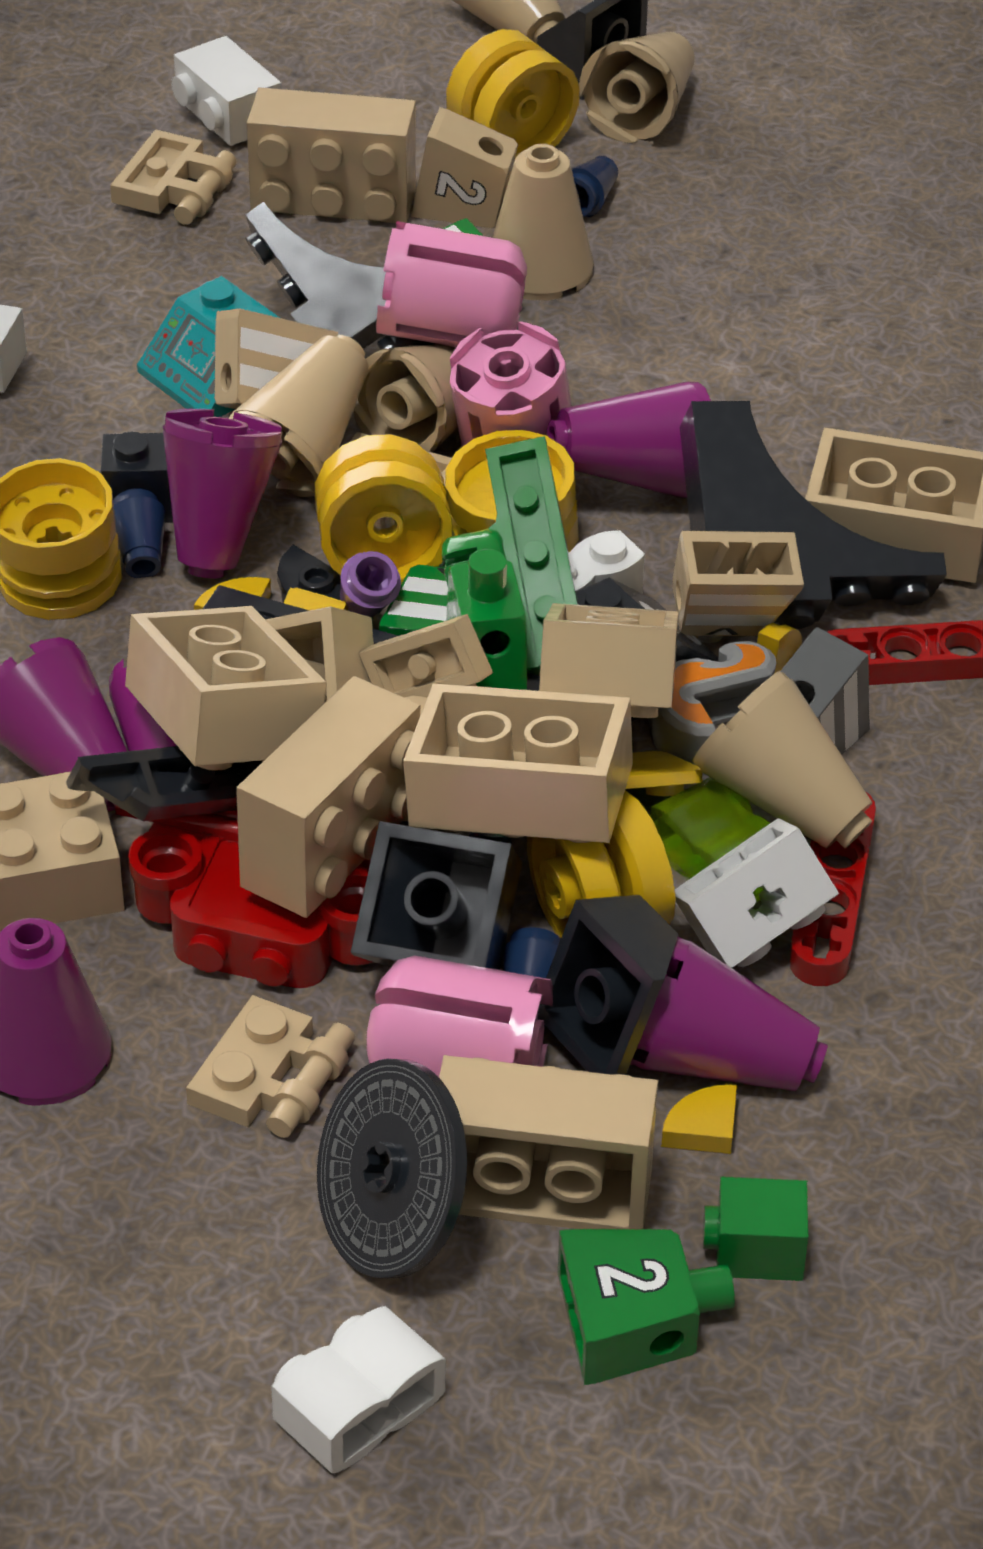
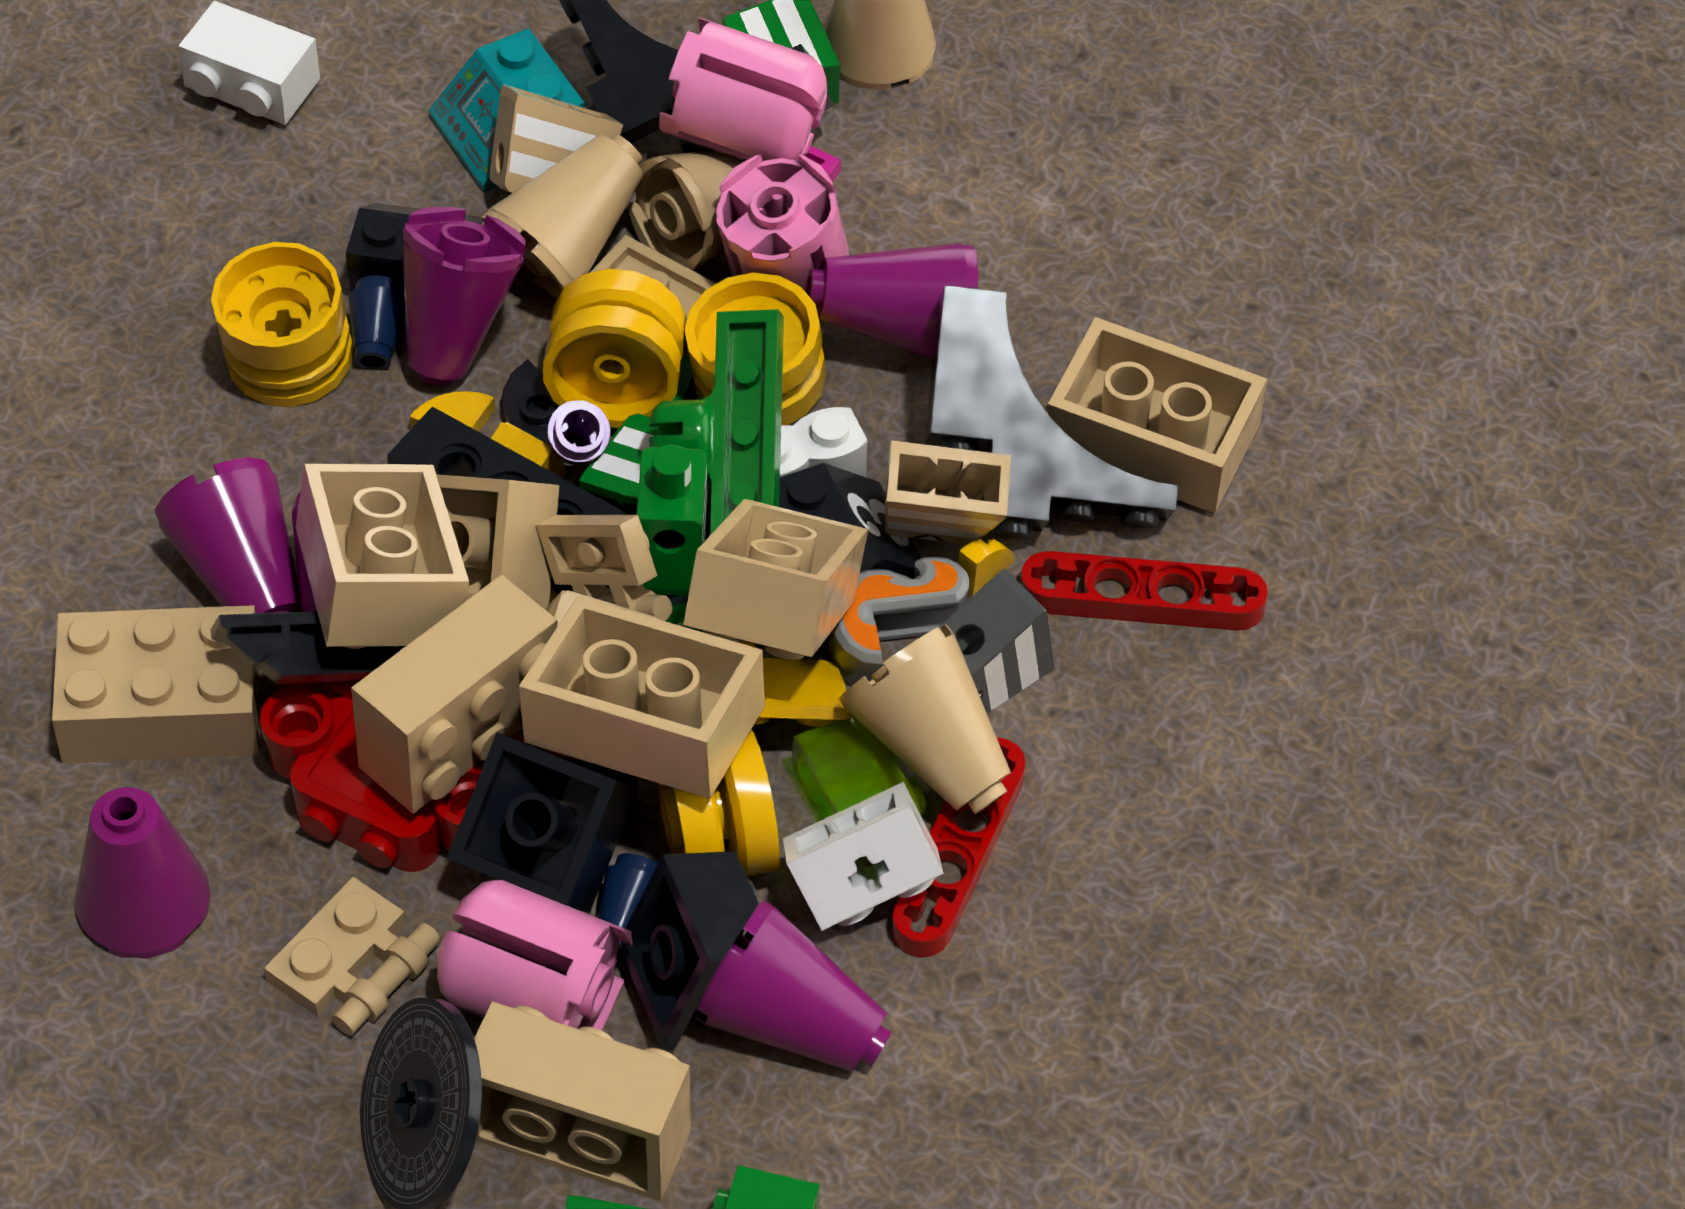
camera: 10 degrees right, 10 degrees up
(702, 1120) = (752, 1088): yellow tile -> none

